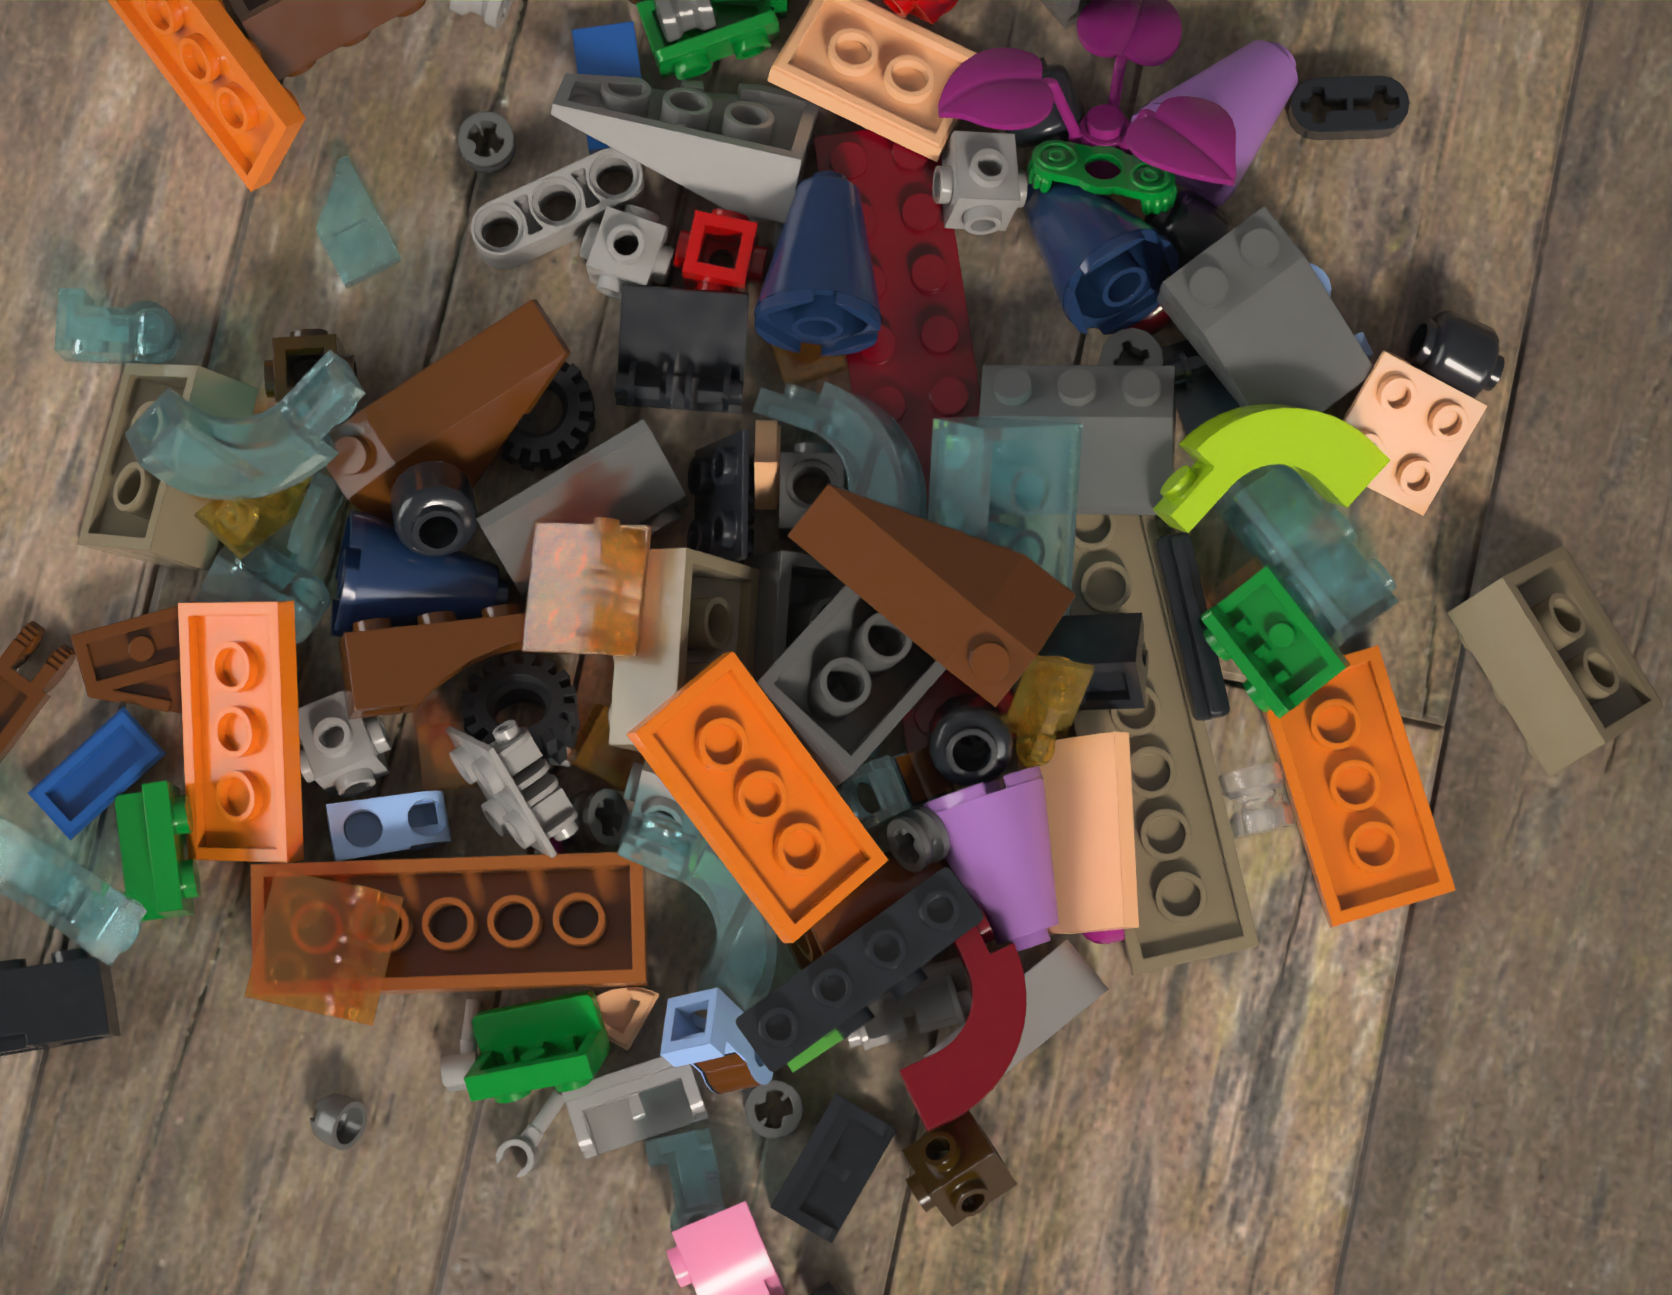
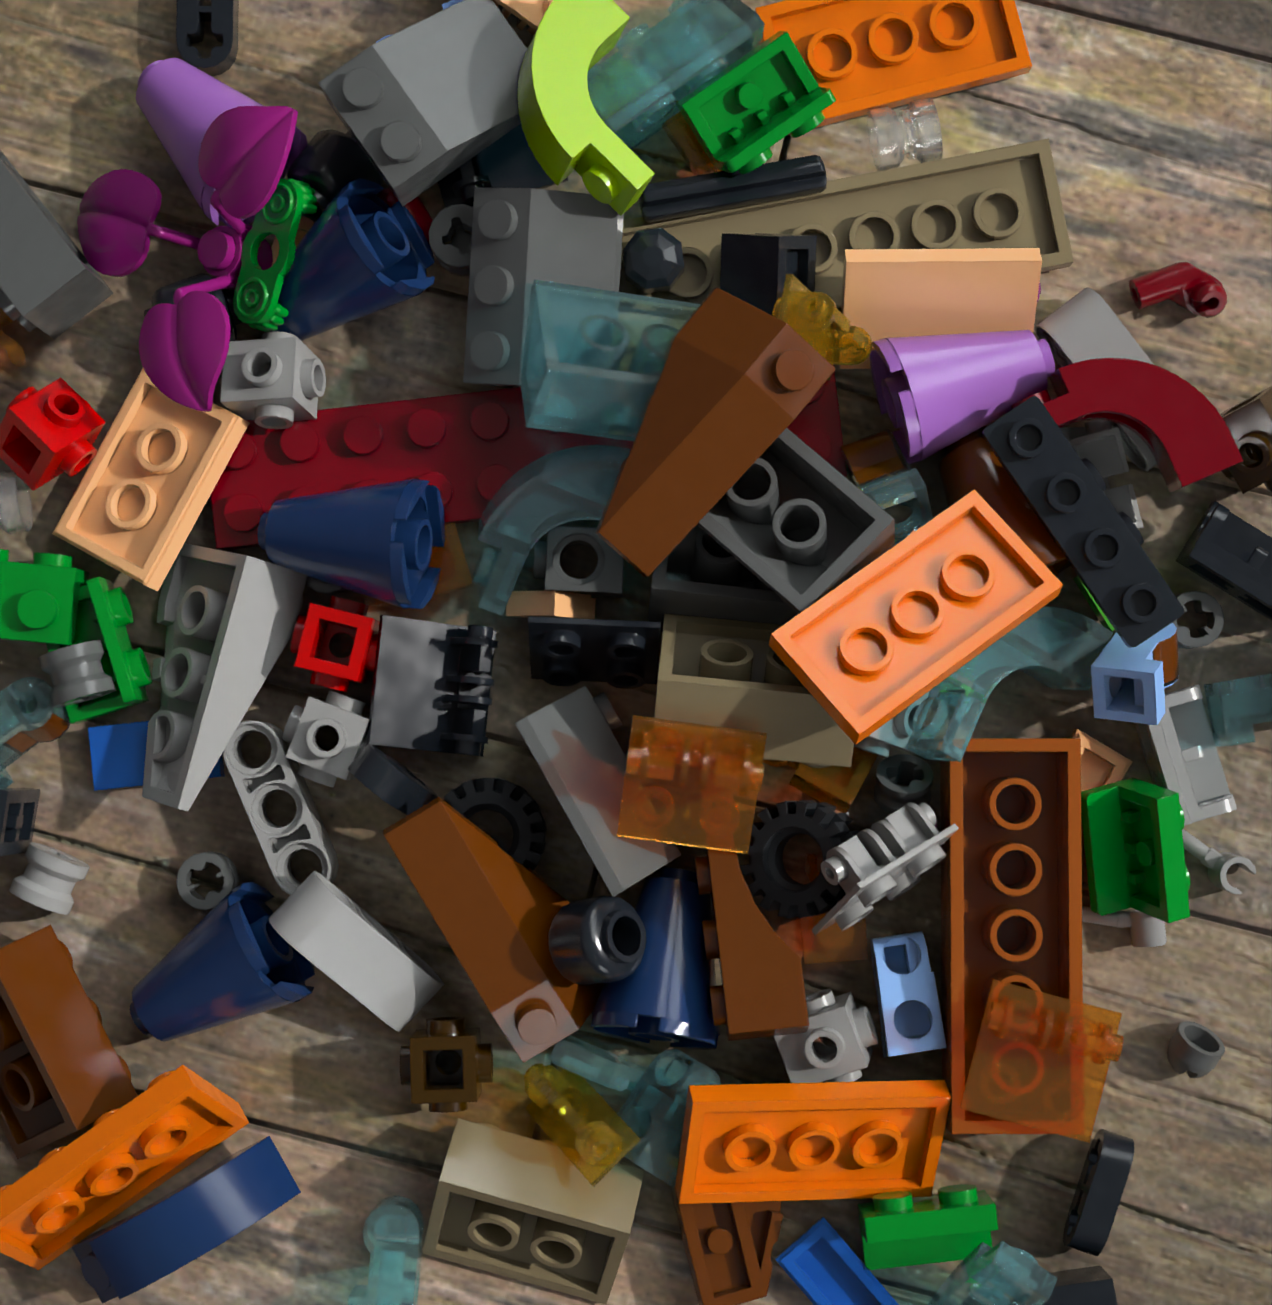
camera: 85 degrees left, 5 degrees up
(155, 133) = (186, 1222): none -> dark blue arch
(194, 1025) = (1098, 1192): none -> black beam
(251, 453) = (535, 1132): clear light blue arch -> none
(354, 230) = (296, 1025): clear light blue tile -> none
(400, 161) = (221, 971): none -> dark blue cone
(419, 283) = (356, 951): none -> light grey beam
(587, 310) = (391, 780): none -> black beam
(918, 839) = (945, 462): dark grey bush -> none
(980, 755) = (849, 410): black head -> none
(1113, 548) = (653, 260): none -> black tile
(1117, 1092) = (1183, 285): none -> dark red arm

